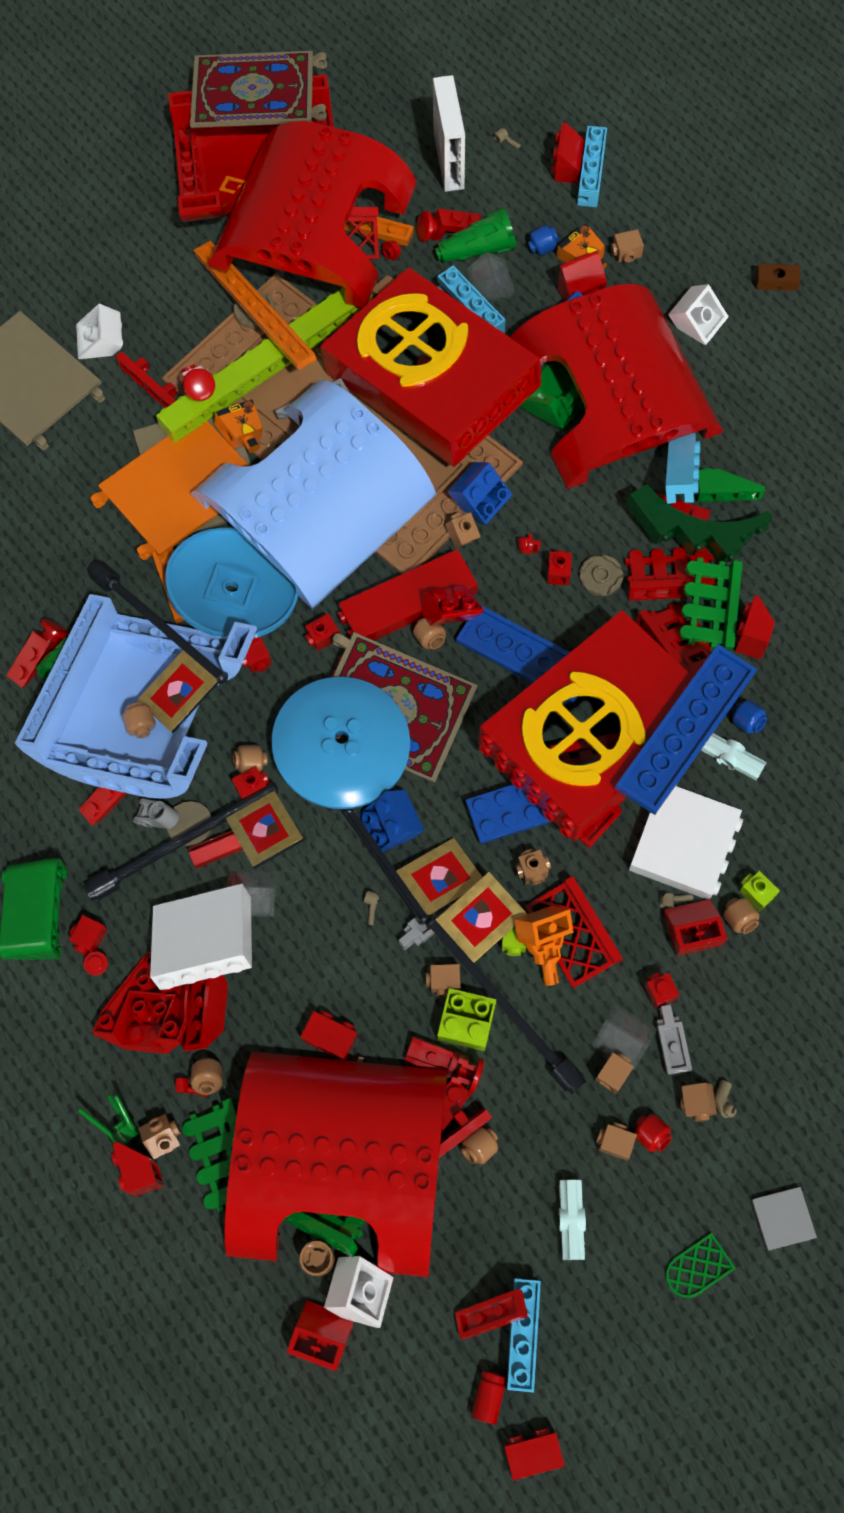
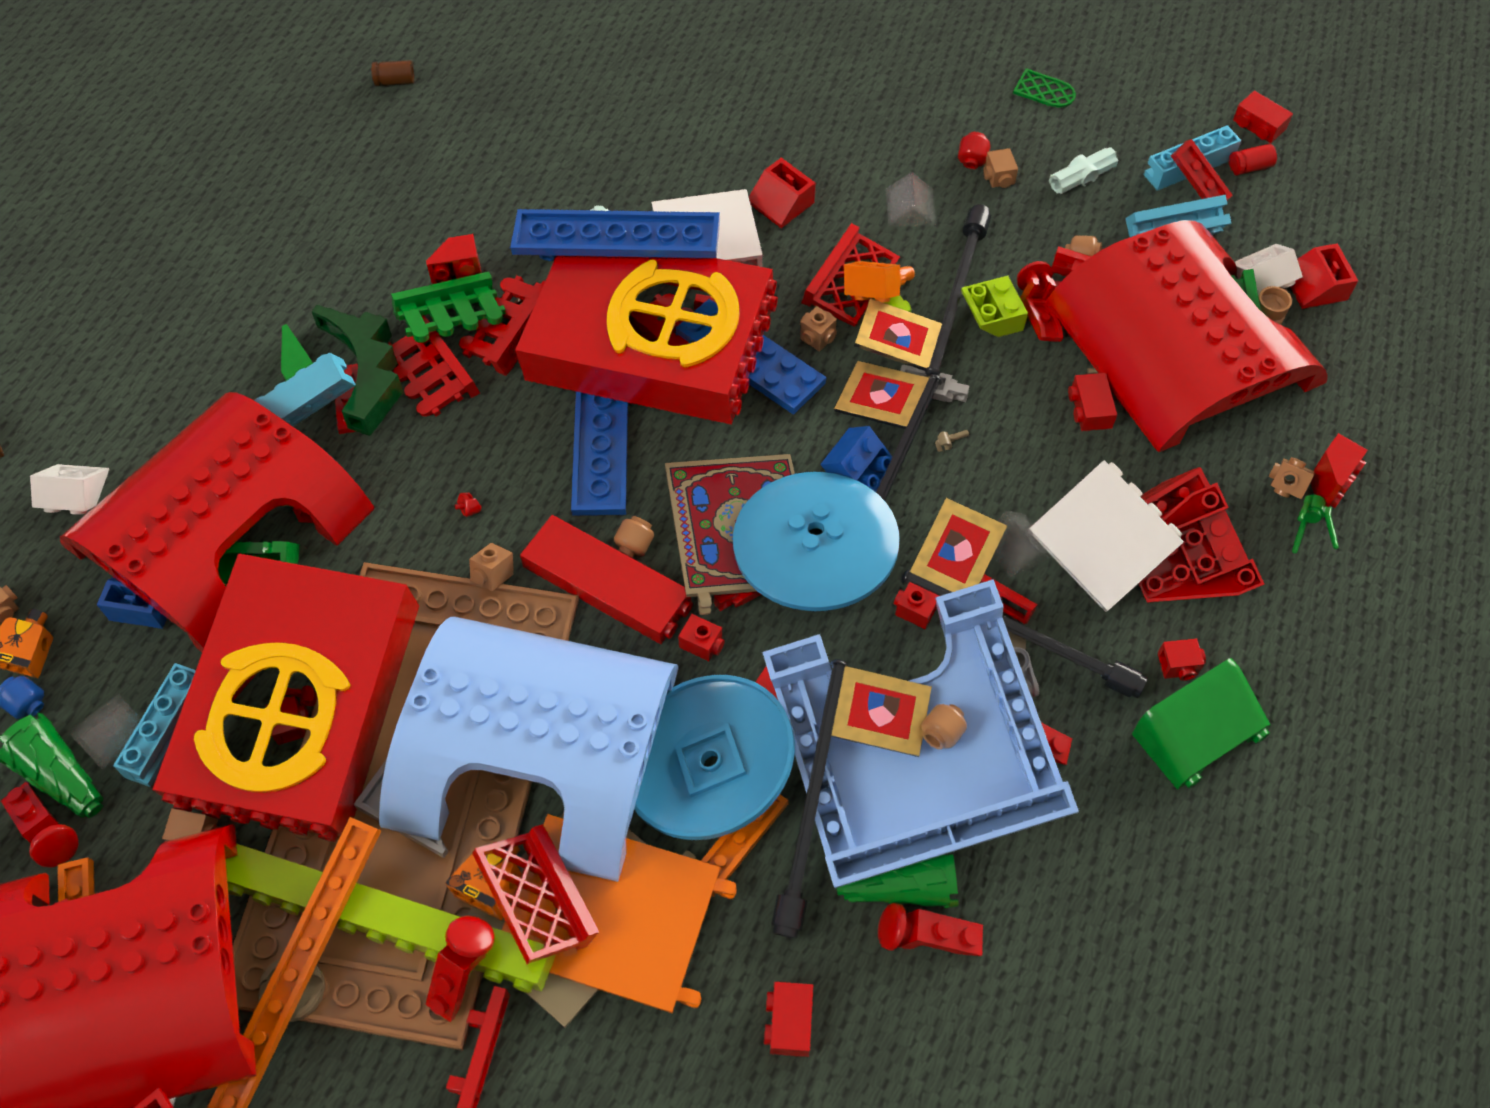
camera: 125 degrees left, 10 degrees down
(48, 545) = (790, 1019): none -> red brick
(95, 963) = (1200, 633): red plate -> none
(182, 1085) = (1233, 491): red hand -> none
(205, 455) = (560, 890): none -> red fence
(206, 1076) = (1215, 469): medium nougat head -> none
(211, 1147) = (1252, 435): green fence -> none
(248, 757) = (891, 623): medium nougat head -> none
(391, 250) = (111, 871): red plate -> none
(442, 978) = (971, 344): medium nougat brick -> none
(449, 605) = (601, 512): red slope -> none
(459, 1256) = (1205, 211): none -> medium azure brick
(480, 492) = (433, 571): blue slope -> none
(559, 568) = (481, 460): red brick -> none
(581, 275) = (73, 618): red slope -> none
(597, 580) = (465, 427): dark tan tile -> none
(615, 1072) = (949, 191): medium nougat brick -> none
(661, 990) = (855, 192): red brick -> none
(669, 899) = (767, 226): dark tan hand -> none
(673, 1042) = (889, 171): light grey hinge -> none
(698, 1101) = (925, 132): medium nougat brick -> none
(722, 1103) = (908, 125): dark tan arm -> none
(741, 915) = (746, 170): medium nougat head -> none
(758, 890) = (715, 168): lime brick -> none
(783, 1218) = (965, 56): light grey tile -> none

